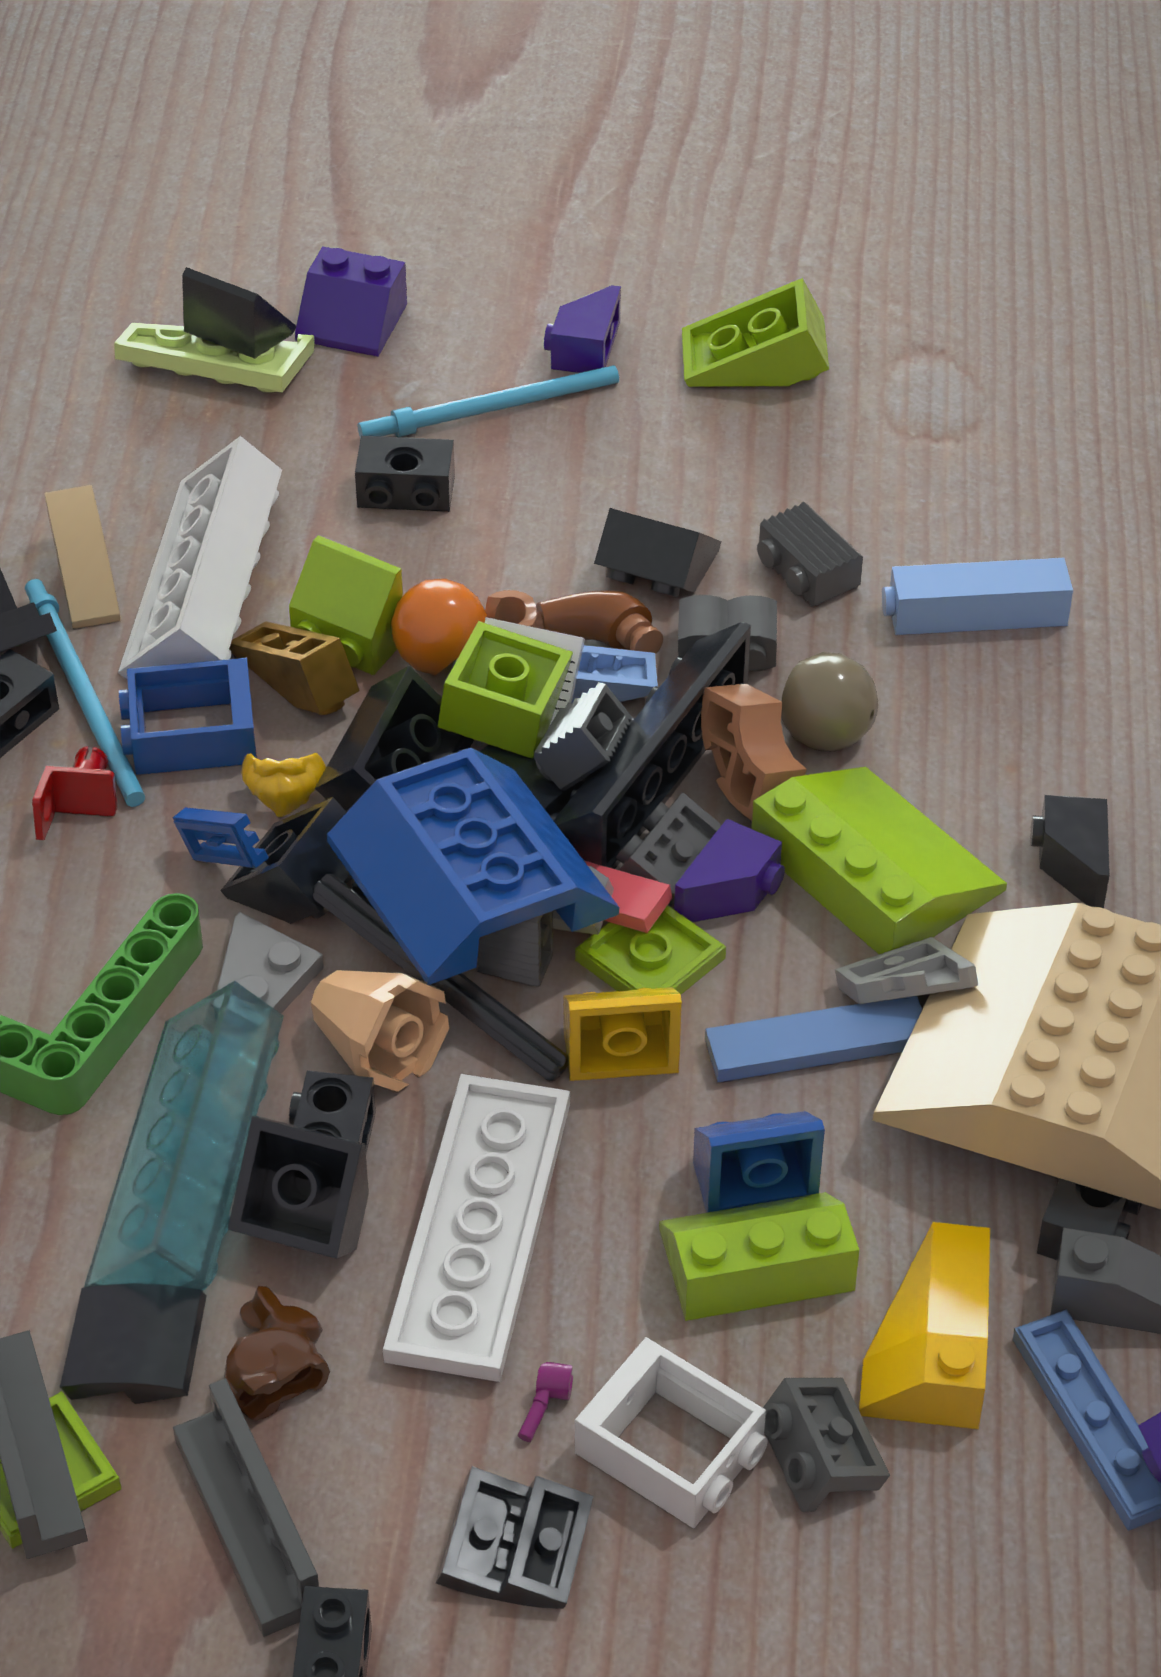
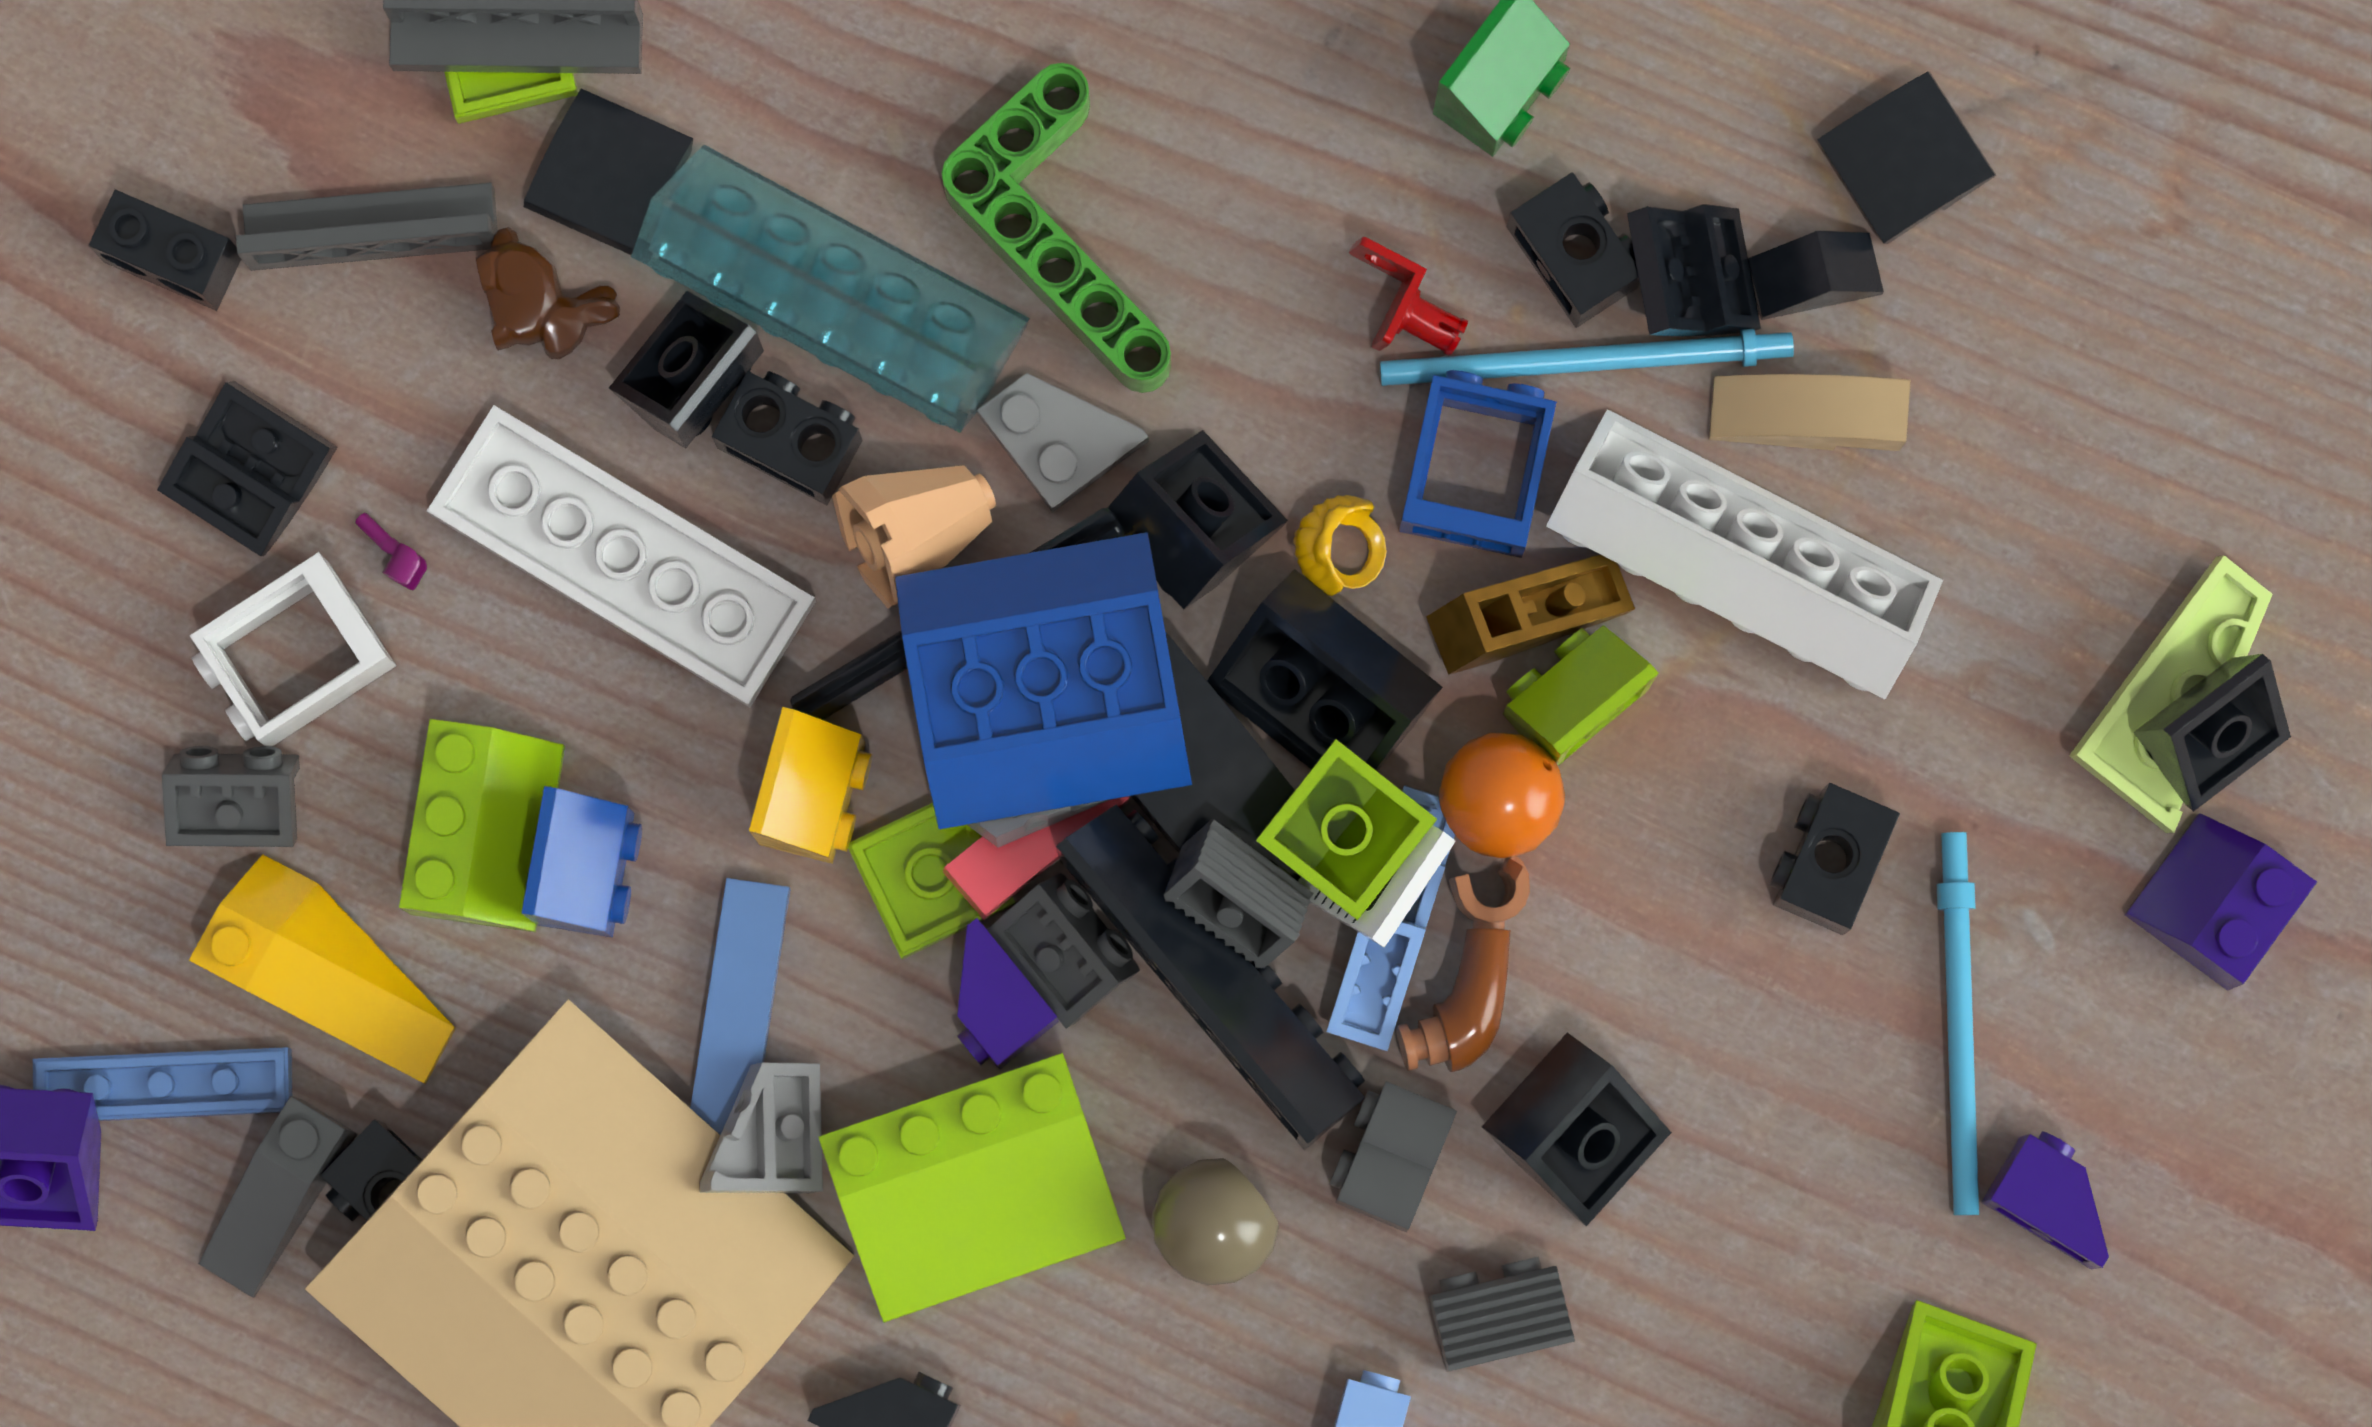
camera: 110 degrees right, 35 degrees up
(215, 829) = (1240, 434): blue tile -> none
(746, 742) = (1158, 1091): nougat brick -> none

